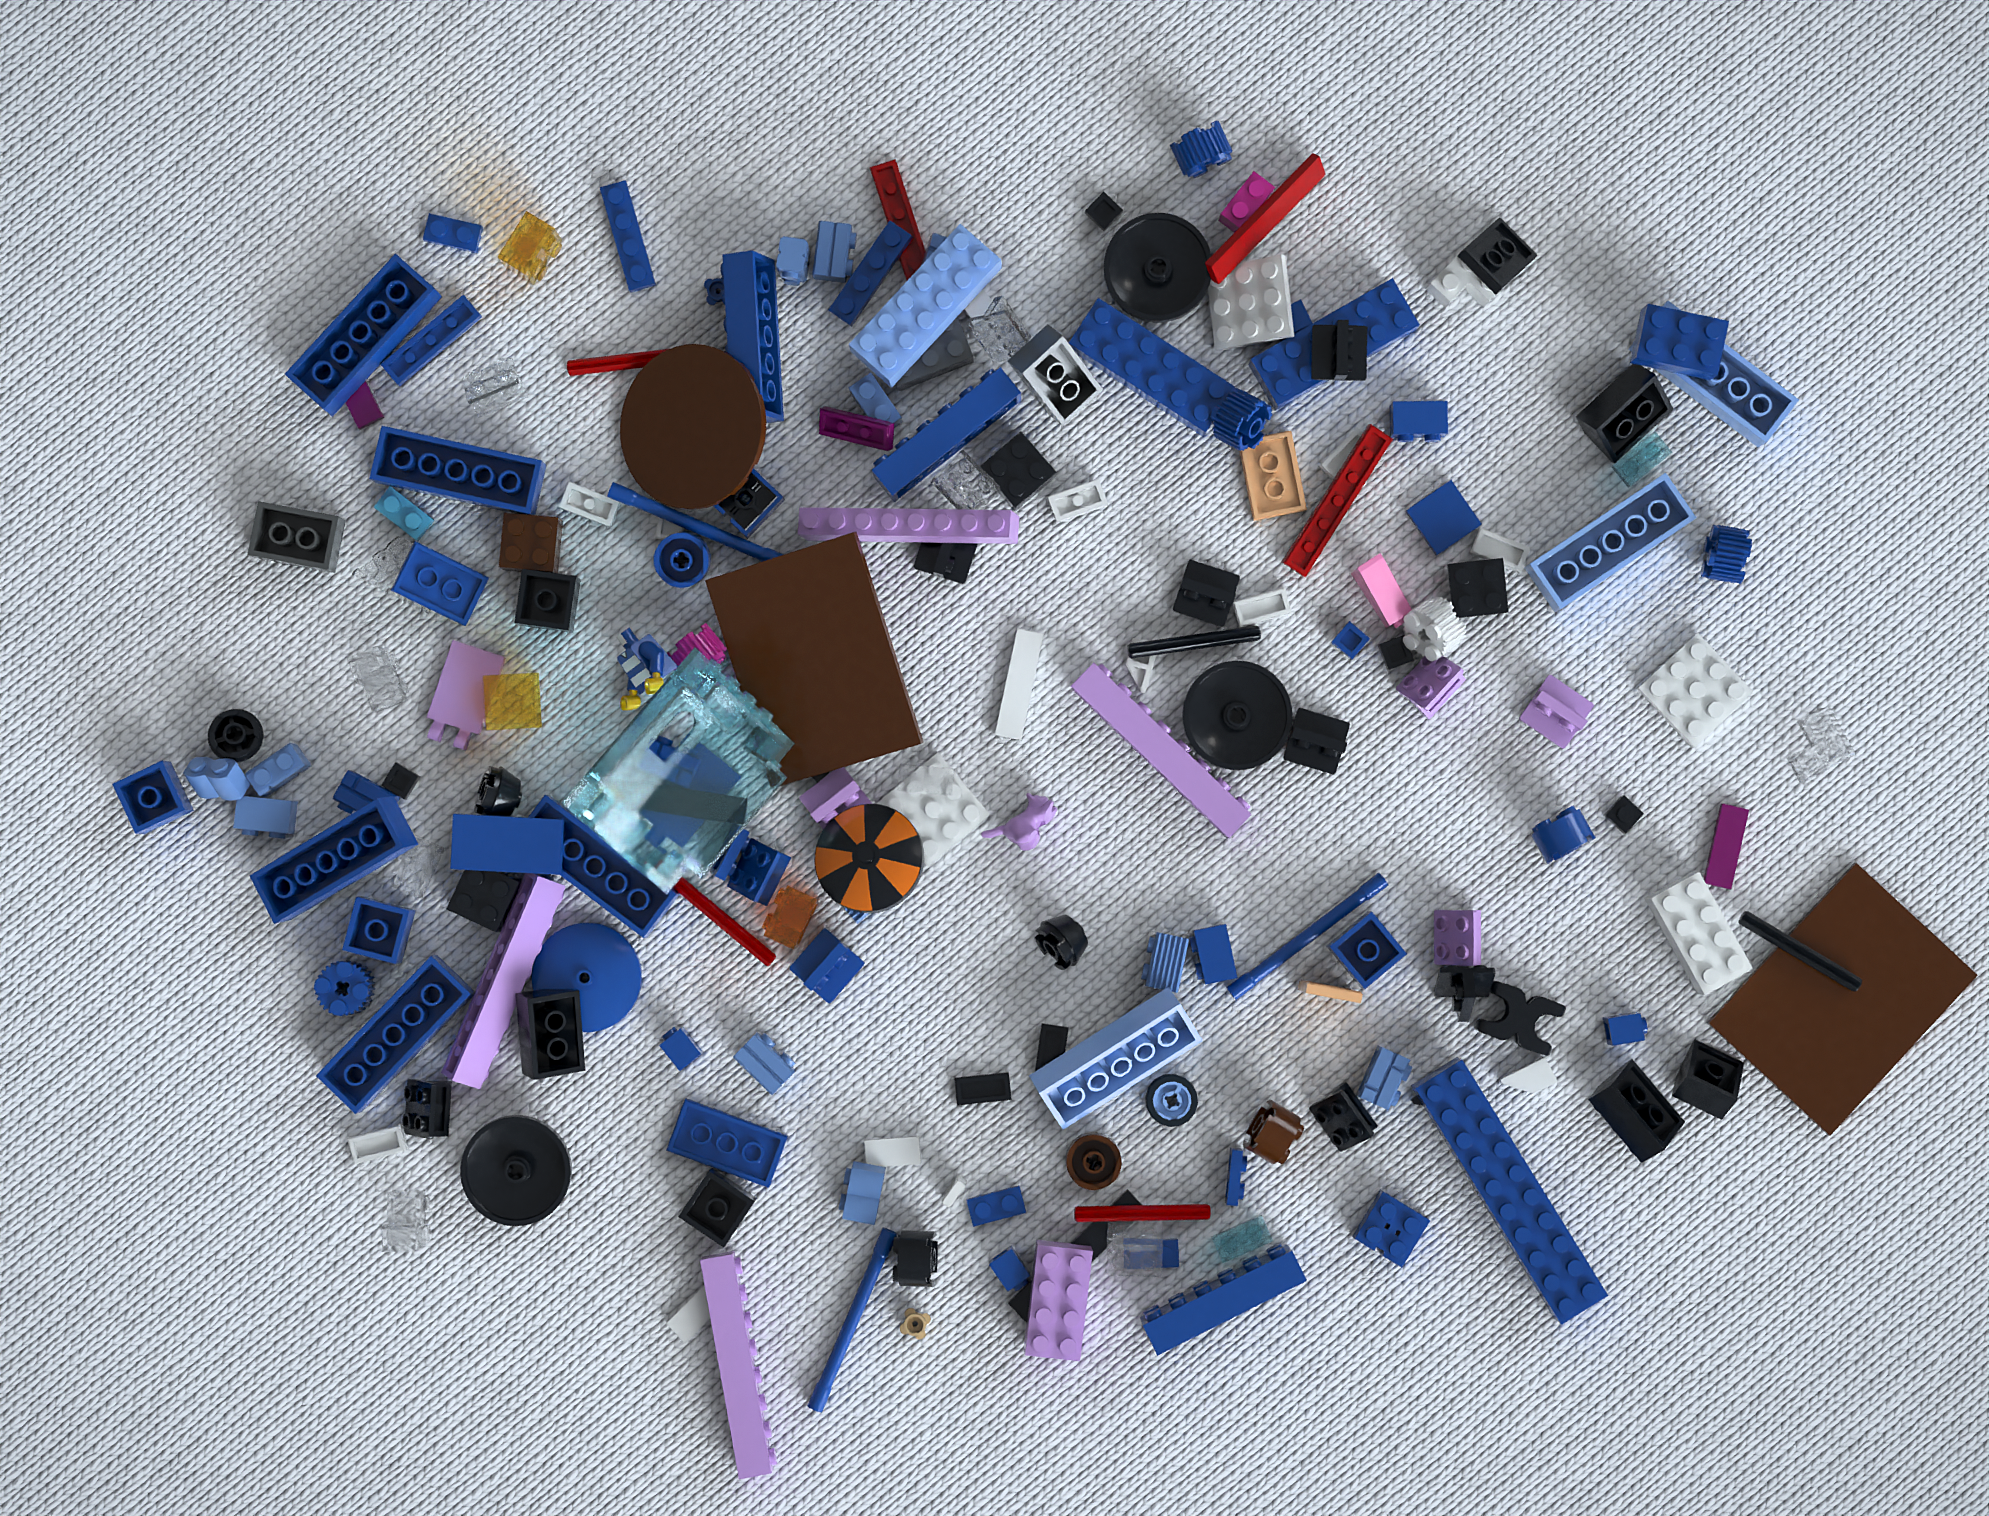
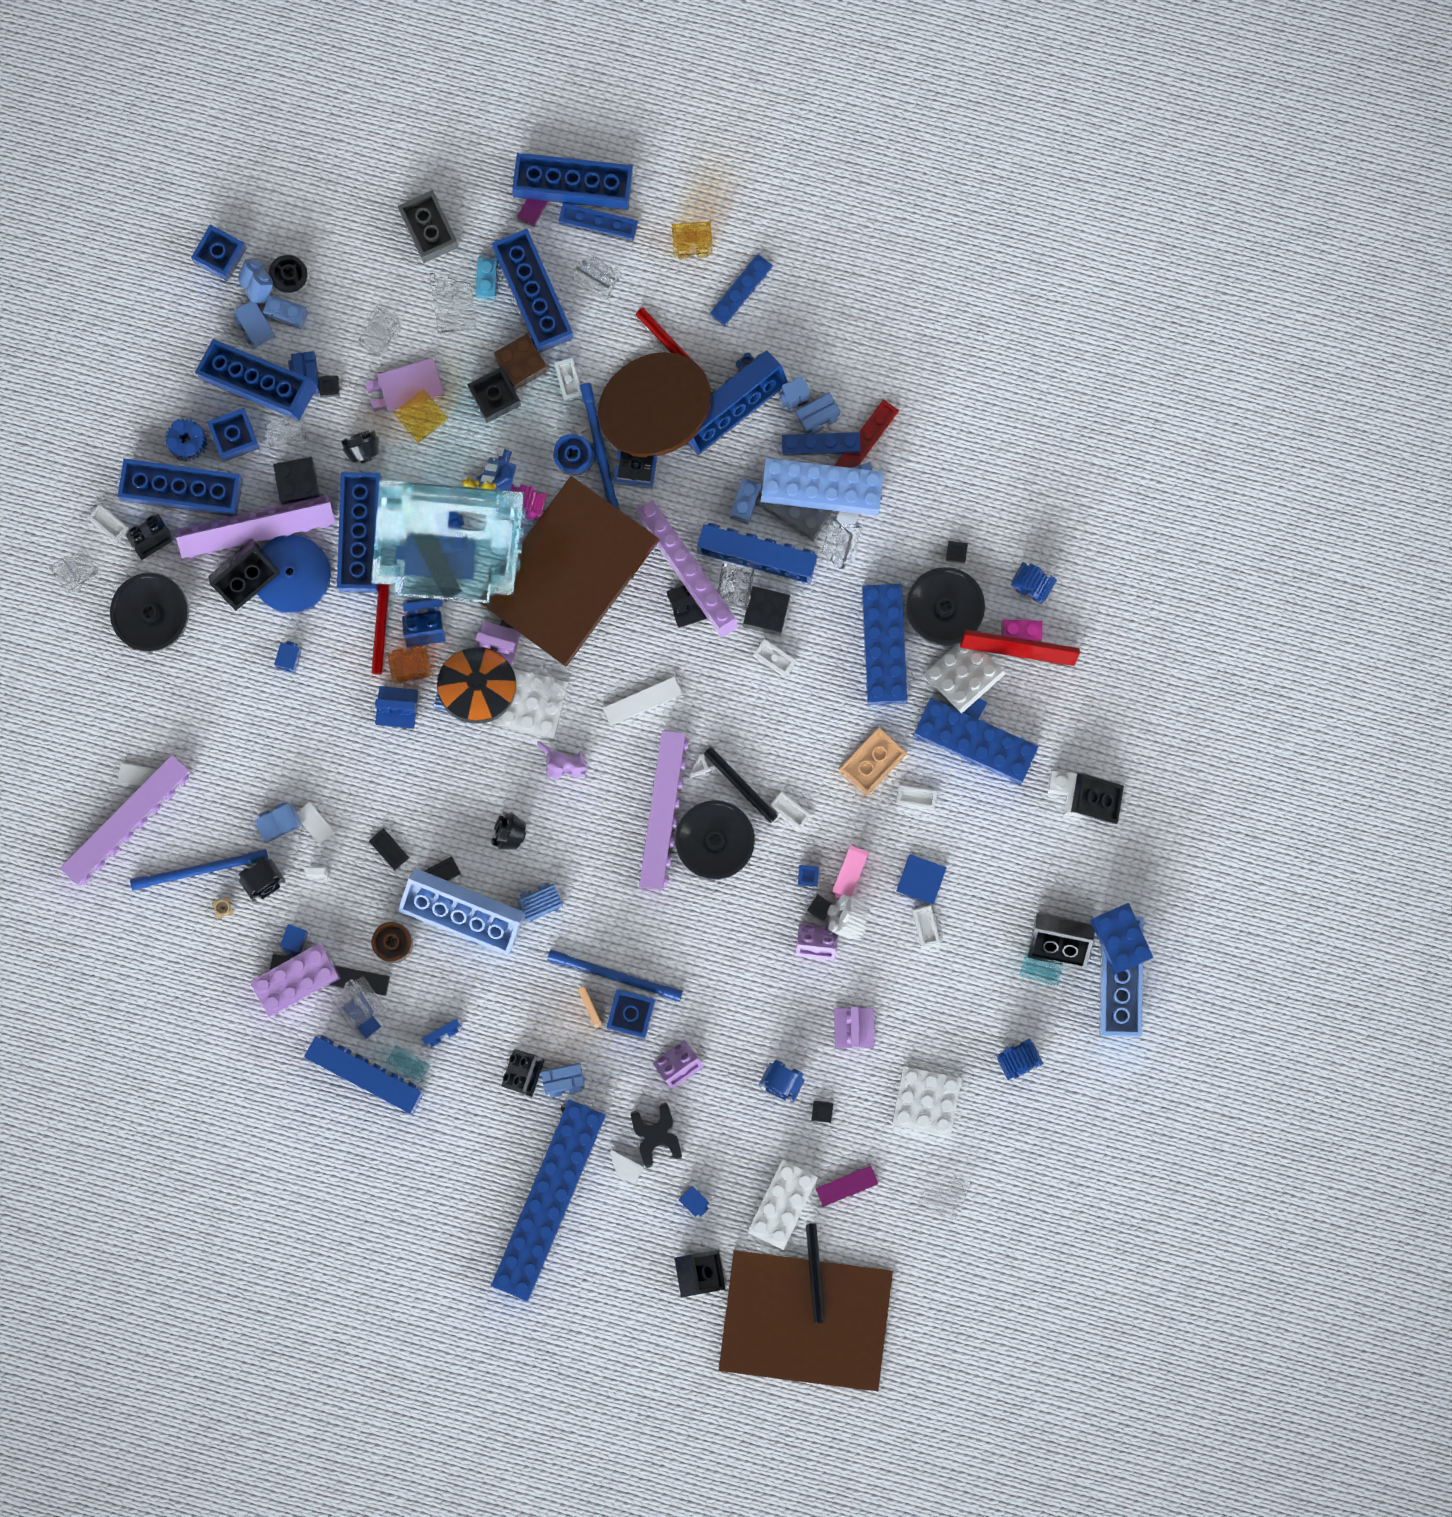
camera: 50 degrees right, 5 degrees down
(439, 583) = (459, 326): blue tile -> none
(452, 233) = (669, 189): blue plate -> none
(507, 844) = (335, 471): blue tile -> none
(717, 1207) = (210, 743): black brick -> none
(727, 1142) = (251, 723): blue tile -> none
(765, 1062) = (314, 711): medium blue brick -> none
(856, 428) = (723, 499): magenta tile -> none
(996, 1205) = (325, 906): blue plate -> none
(1055, 375) = (837, 591): dark grey brick -> none
(1142, 1213) = (381, 993): red axle -> none
(1174, 1114) = (470, 968): wheel -> none
(1206, 593) = (775, 771): black bracket -> none
(1213, 953) = (564, 927): blue brick -> none
(1240, 419) = (890, 717): blue brick -> none
(1273, 1133) = (483, 1035): reddish brown brick -> none
(1316, 741) = (734, 898): black bracket -> none
(1337, 500) = (885, 809): red tile -> none
(1339, 352) = (970, 745): black bracket -> none
(1391, 1228) = (481, 1154): blue piece -> none
(1418, 420) = (967, 823): blue brick -> none
(1464, 987) = (650, 1085): black bracket -> none
(1478, 587) = (892, 927): black brick -> none
(1610, 542) = (976, 986): light blue brick -> none
(1637, 1111) = (650, 1244): black slope -> none

